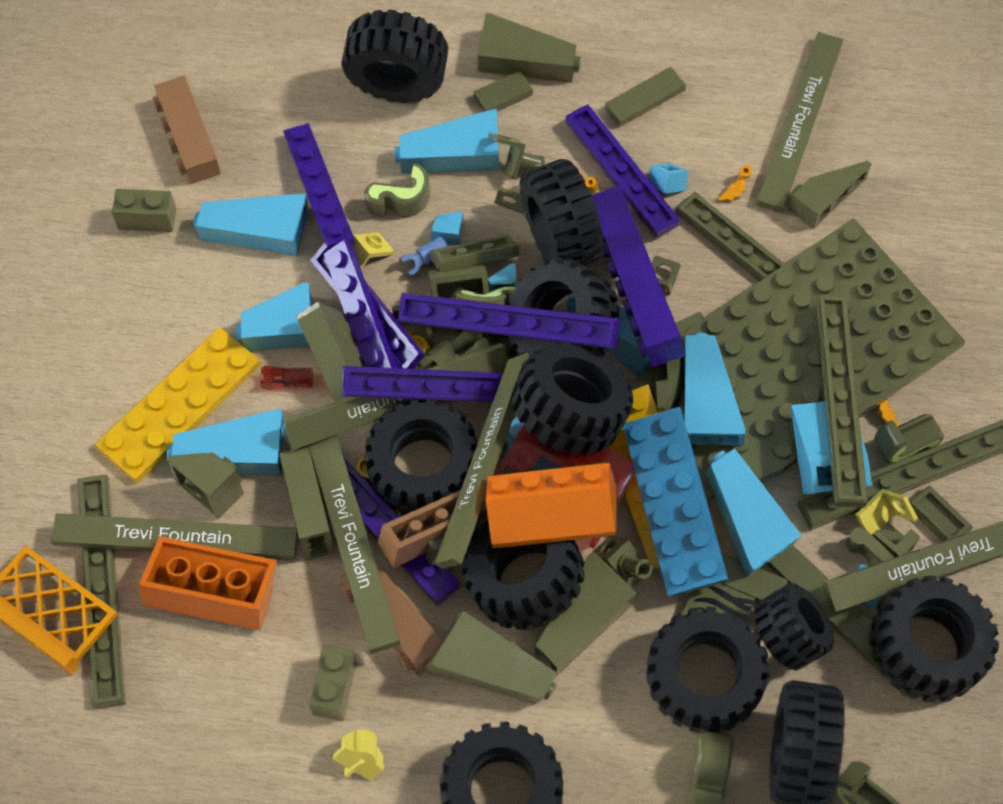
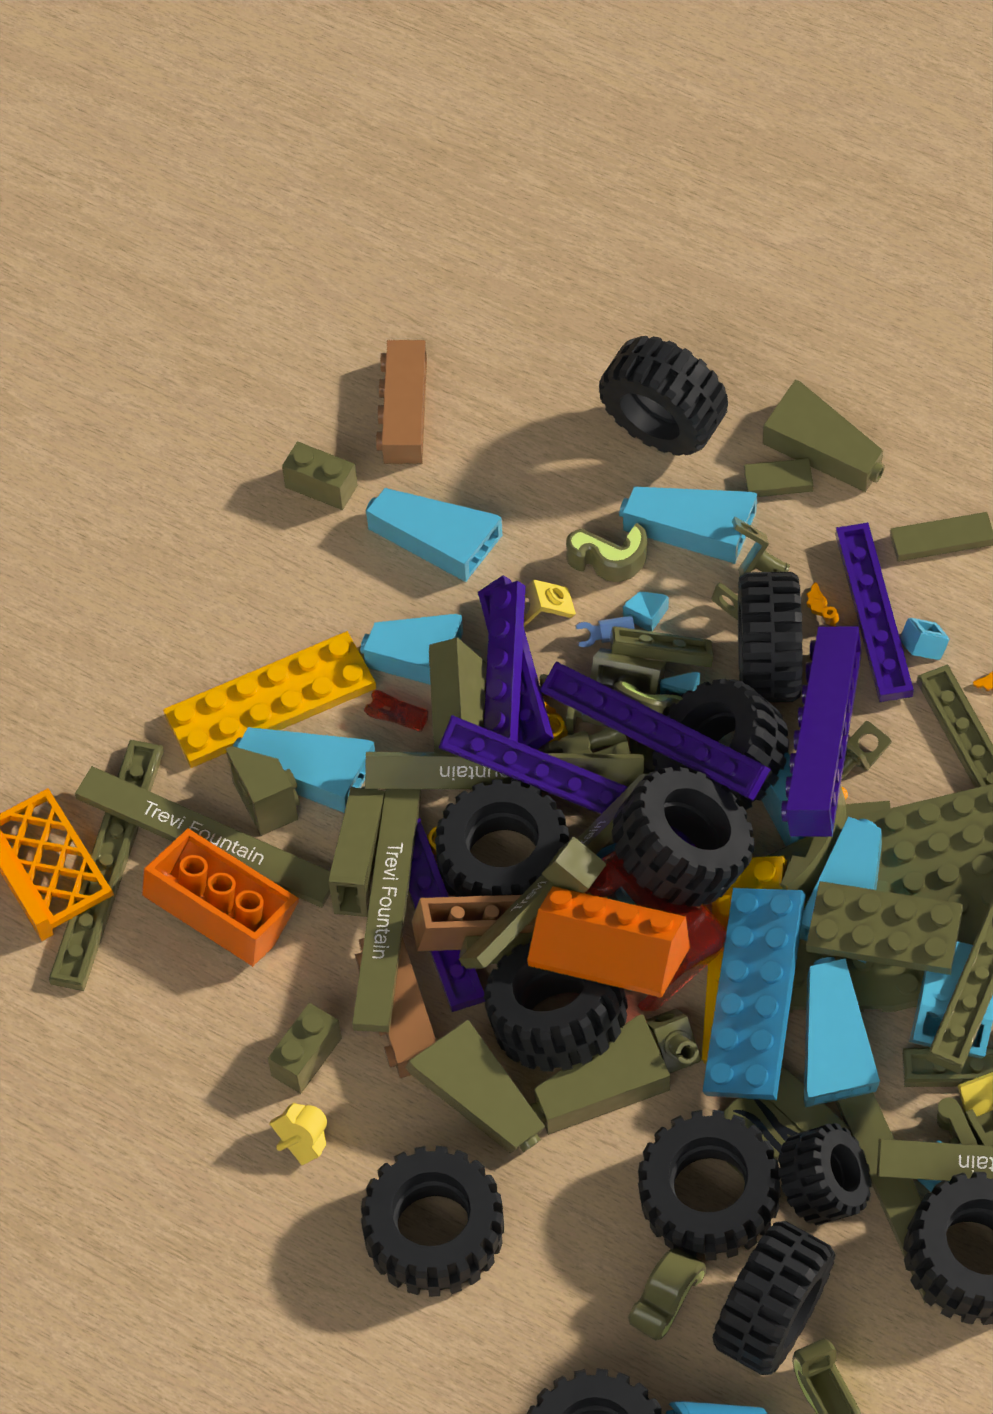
camera: 25 degrees right, 5 degrees down
(318, 186) = (520, 512): dark purple plate -> none
(498, 454) = (574, 867): none -> olive panel
(755, 412) = (884, 927): none -> olive plate

